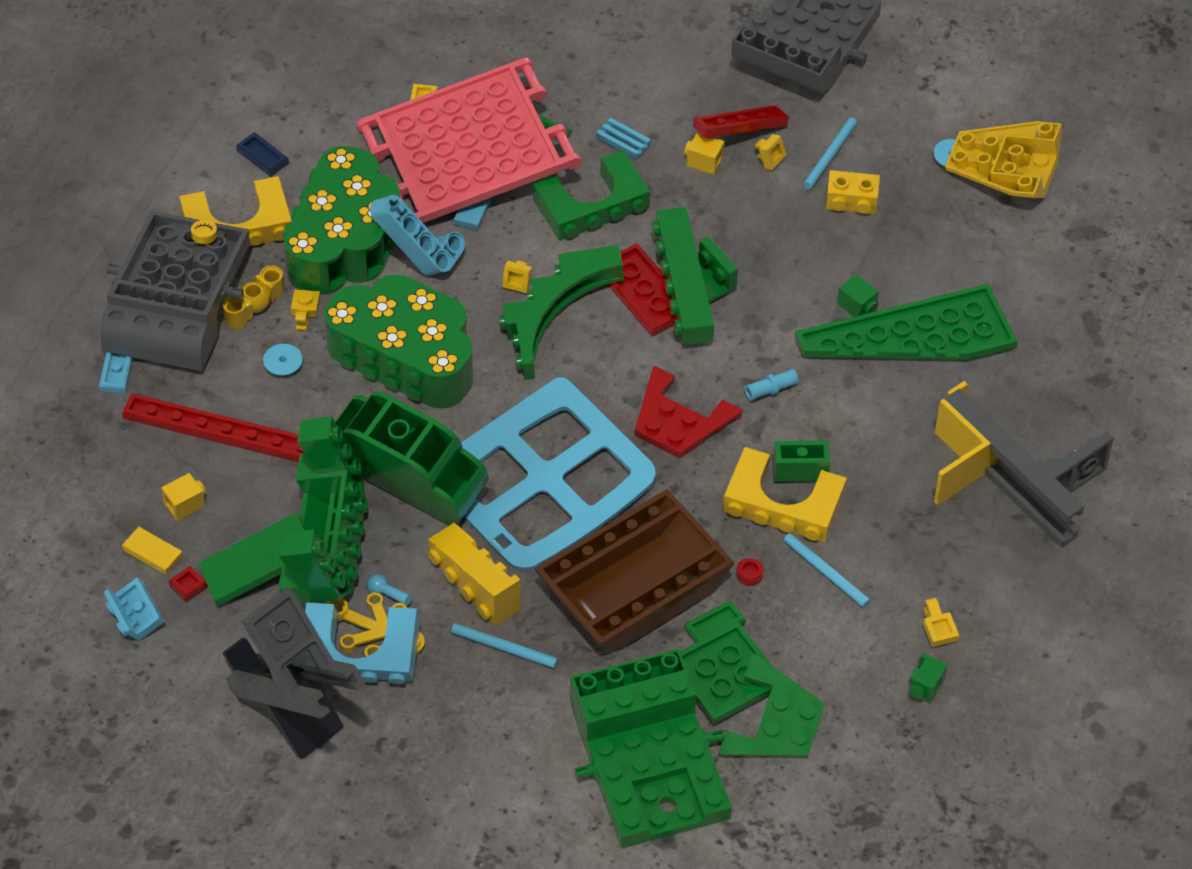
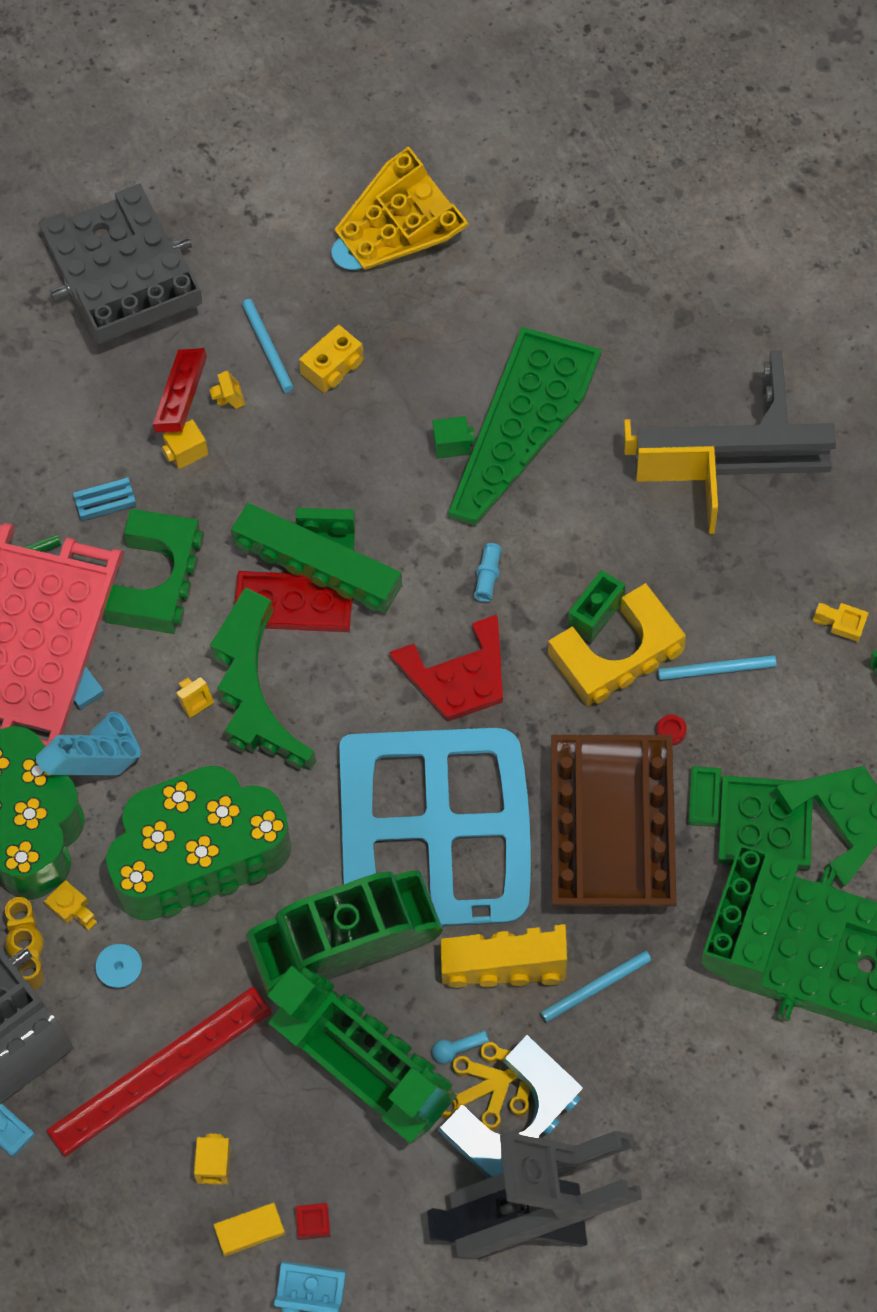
camera: 50 degrees left, 10 degrees up
(247, 561) = (344, 1139): green tile -> none

